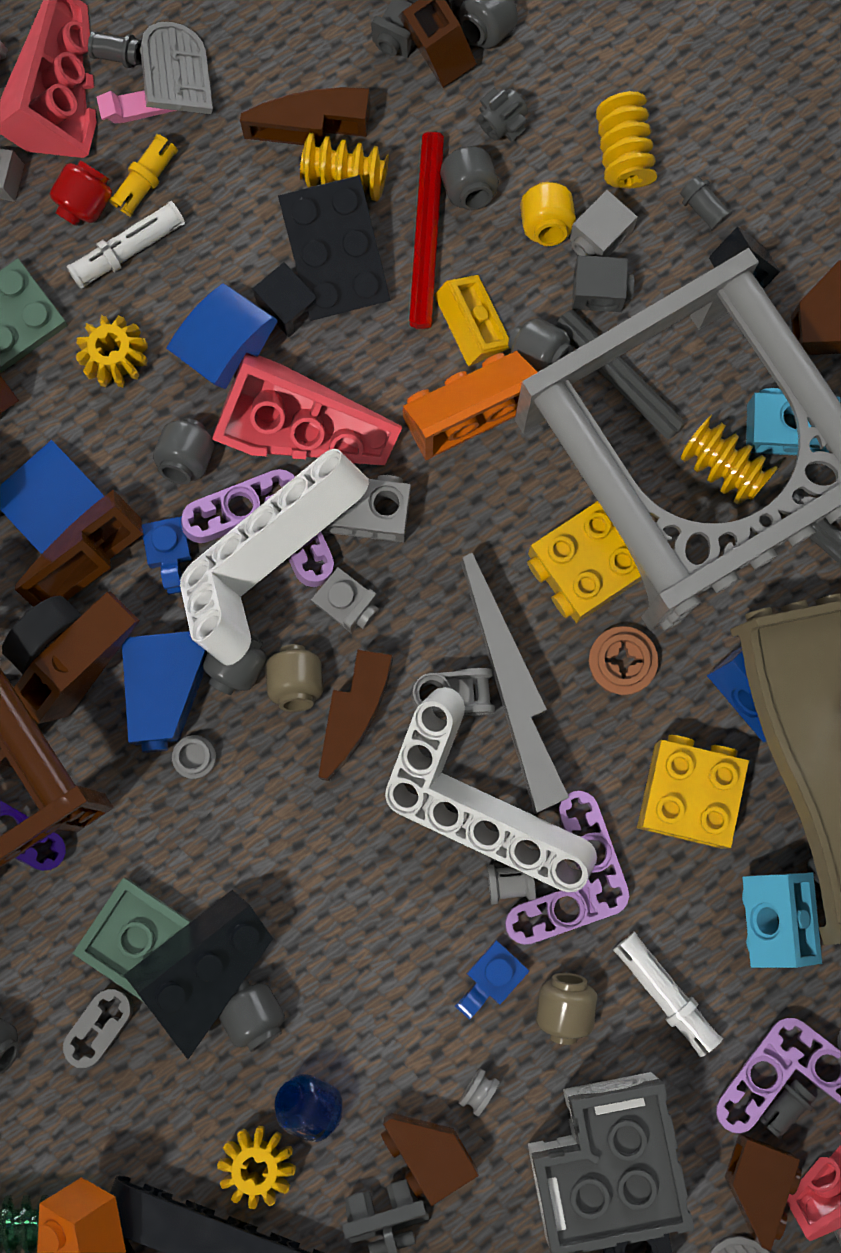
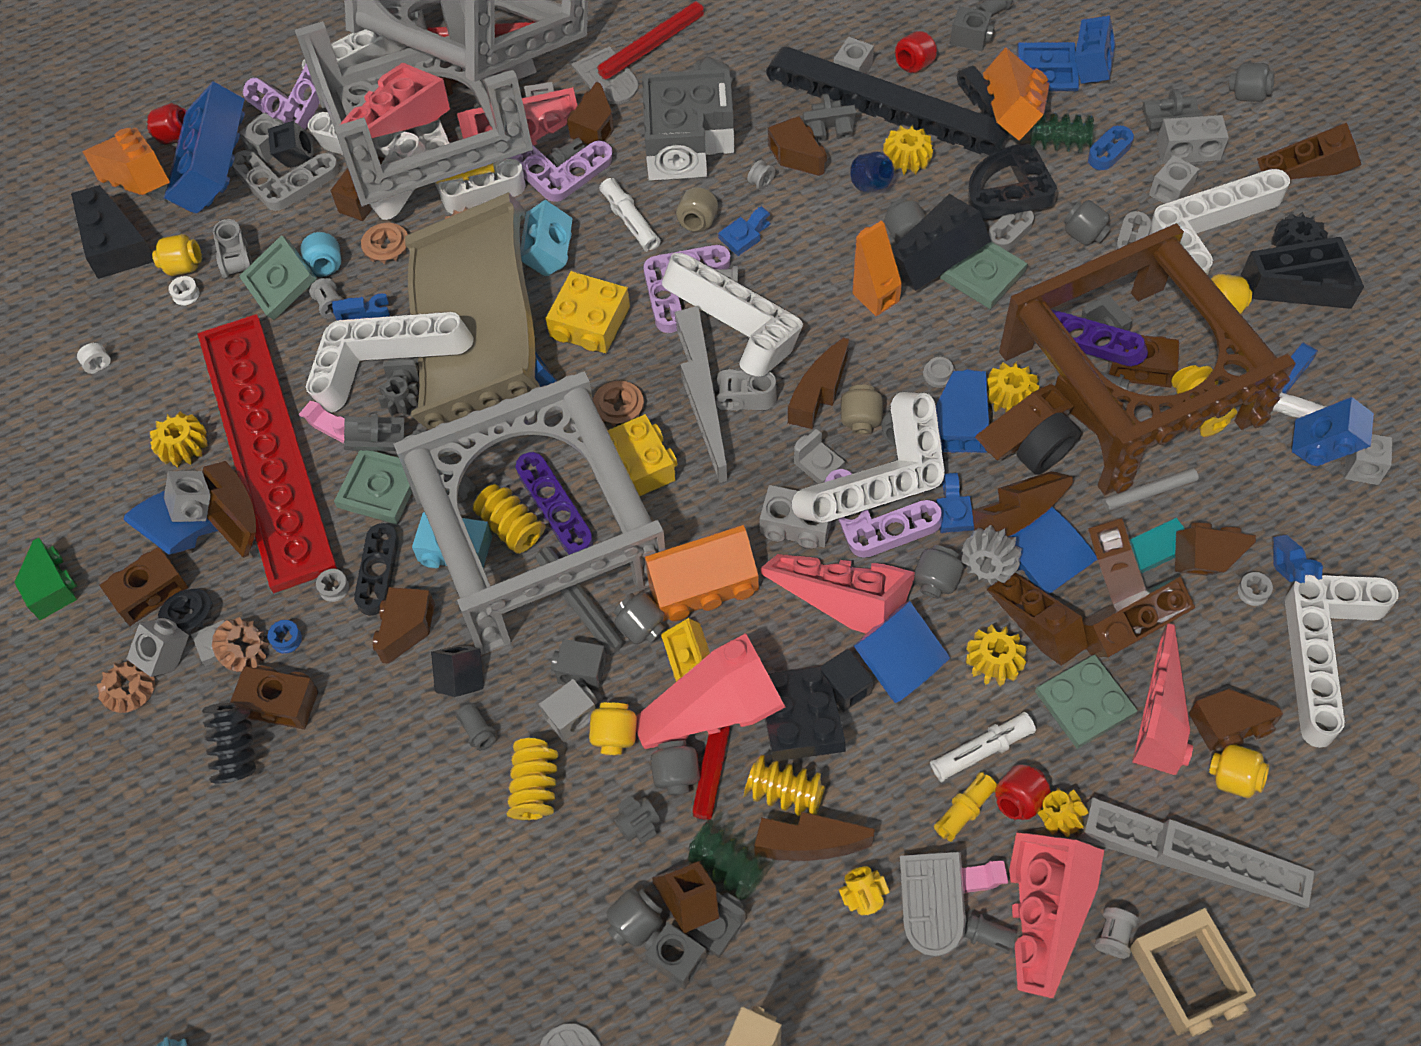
camera: 170 degrees left, 20 degrees down
(30, 181) = (1063, 812): none -> yellow gear
(64, 410) = (1043, 619): none -> reddish brown slope
(75, 1091) = (994, 201): none -> black beam
(86, 749) = (1009, 386): none -> yellow gear
(117, 467) = (991, 555): none -> light grey gear
(260, 71) = (864, 890): none -> yellow gear
(287, 889) = (875, 270): none -> orange slope
(397, 83) = (726, 861): none -> clear green piece
(429, 246) = (718, 692): none -> coral wedge
(684, 494) = (553, 504): none -> dark purple beam

